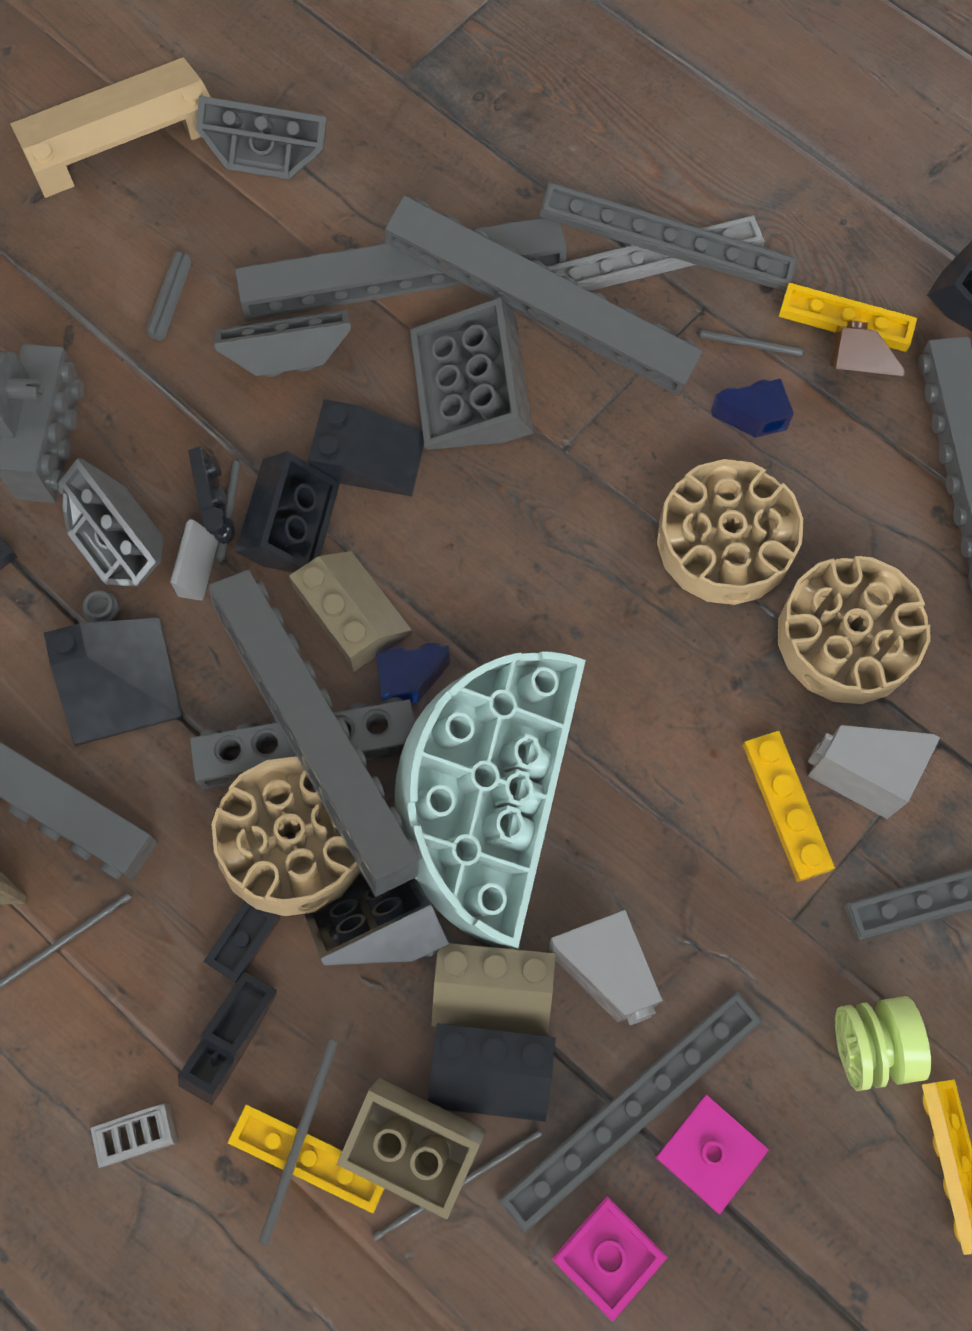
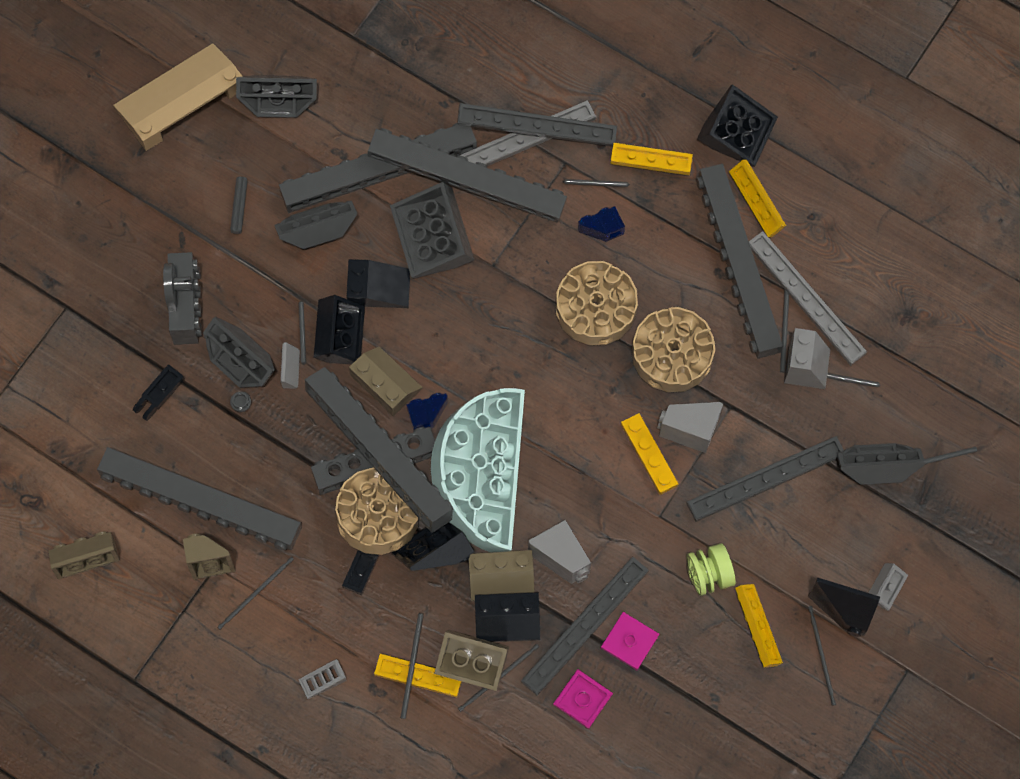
camera: 10 degrees left, 0 degrees up
(112, 677) = (257, 440): black slope -> none
(211, 495) = (292, 326): black hinge -> none
(226, 1038) = (362, 623): black slope -> none
(863, 350) = (662, 181): slope -> none

